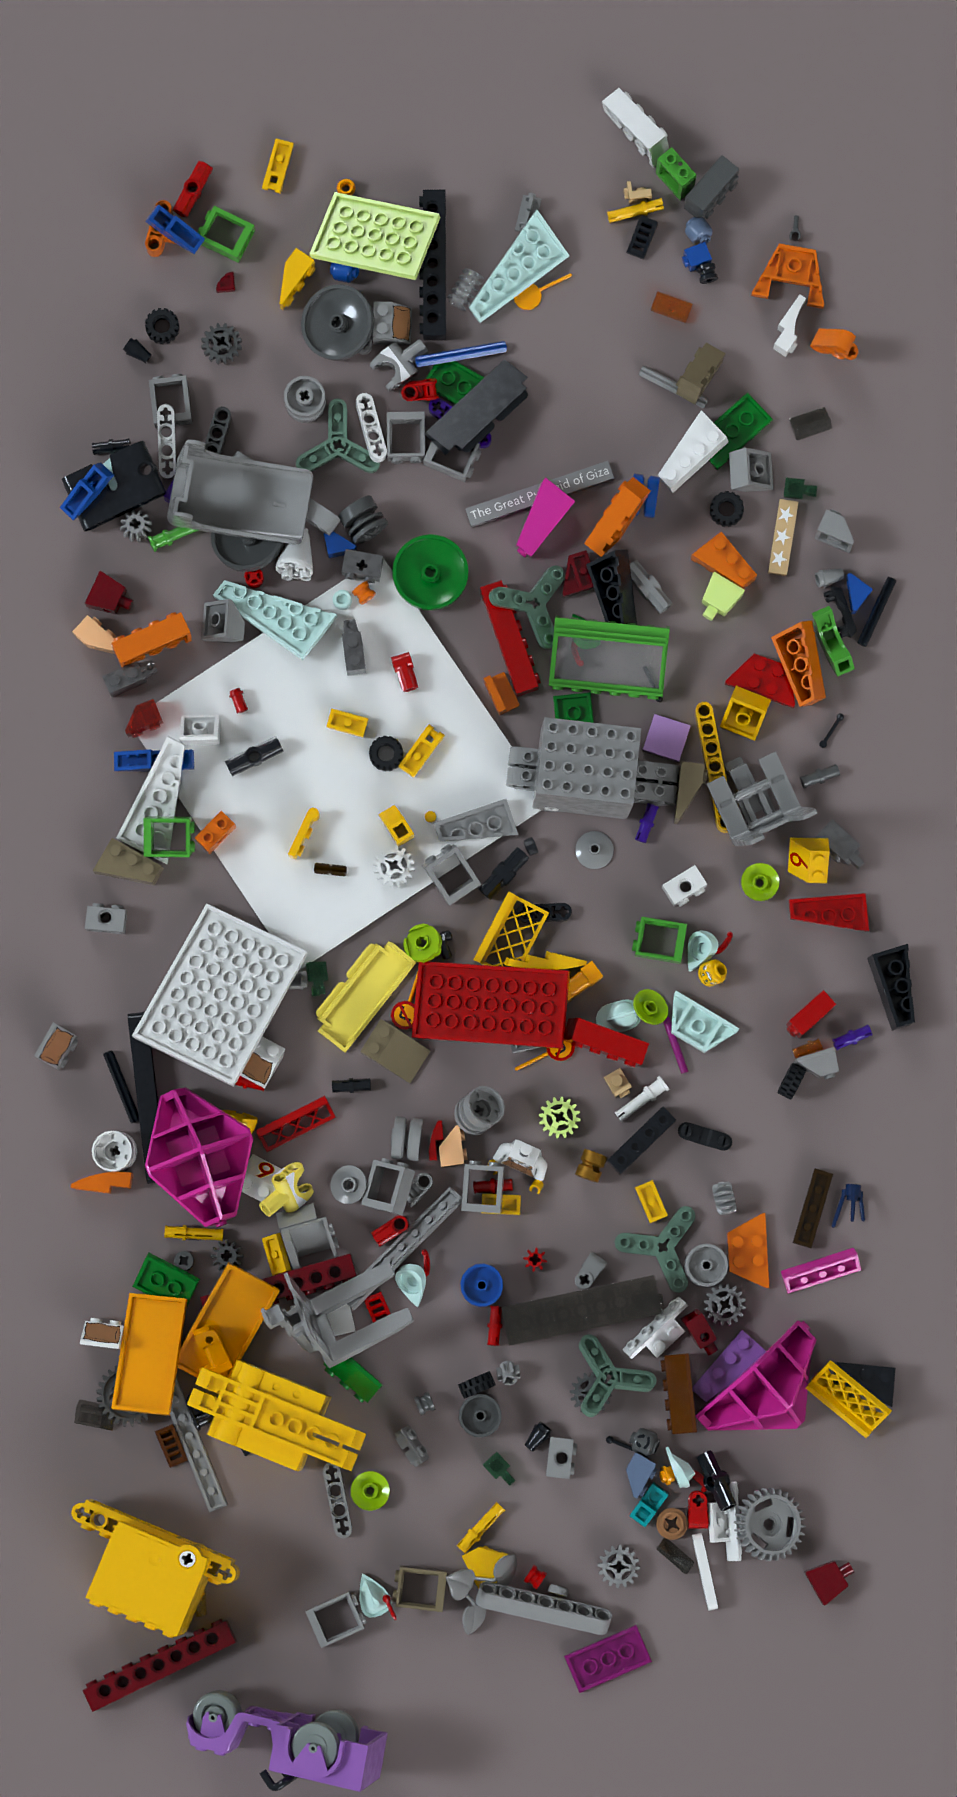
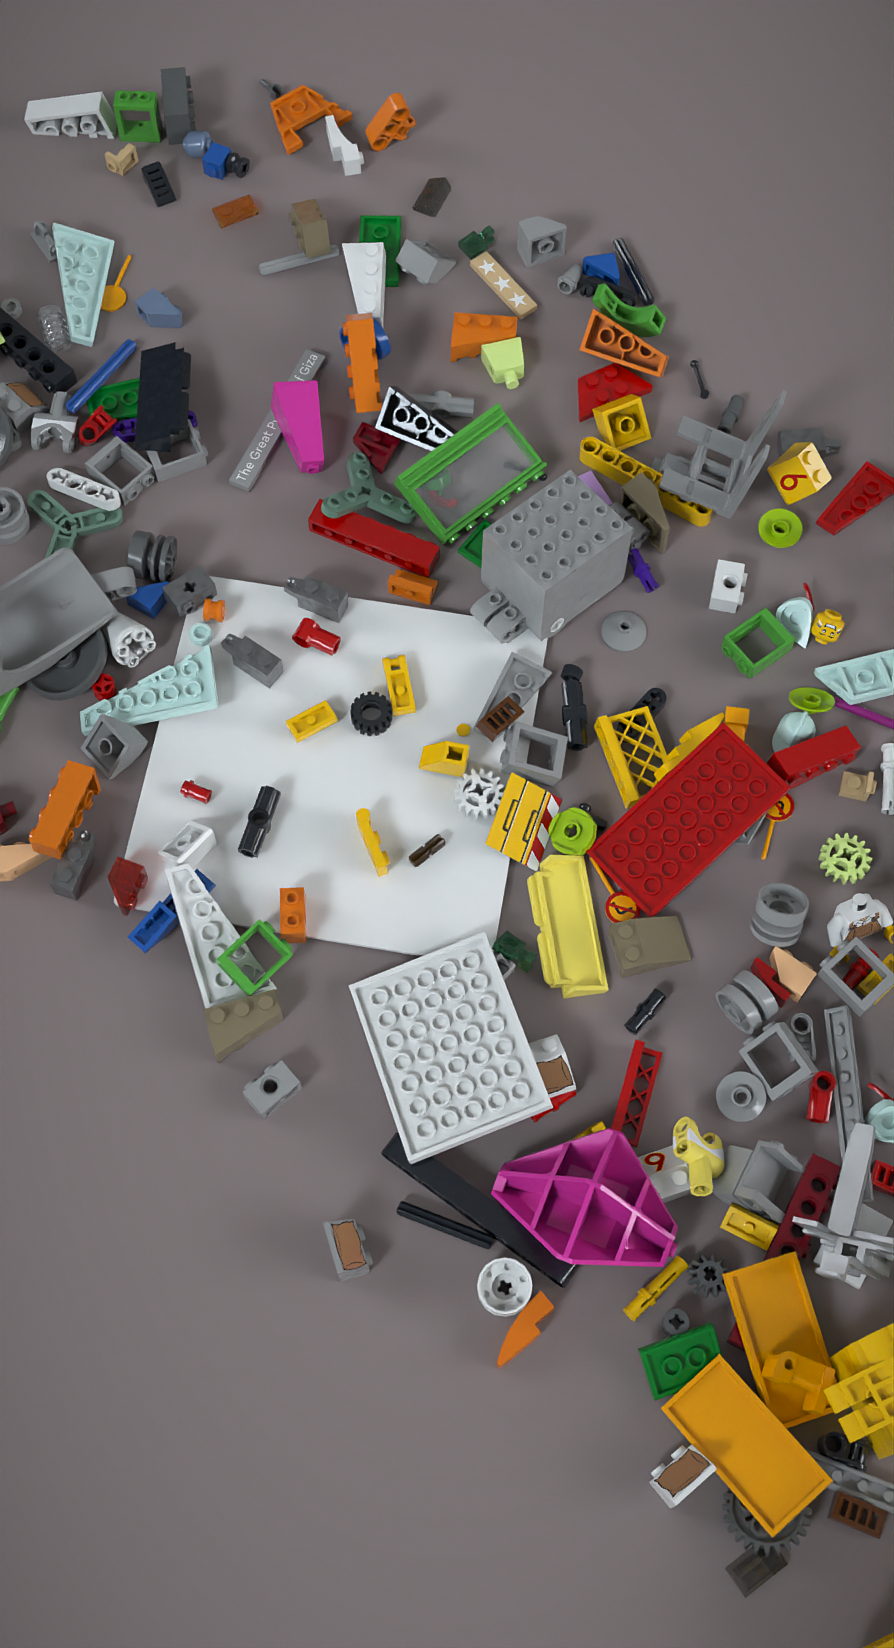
camera: 50 degrees left, 15 degrees down
(402, 908) = (523, 821): none -> yellow sticker
(430, 572) = (253, 546): green dish -> none
(431, 646) = (318, 597): none -> flat silver hinge
(437, 833) = (488, 730): none -> reddish brown slope
(456, 242) = (12, 307): none -> light grey tile
(543, 338) = (158, 311): none -> sand blue slope
(635, 210) = (132, 172): yellow pin -> none
(726, 520) = (438, 291): black tyre -> none

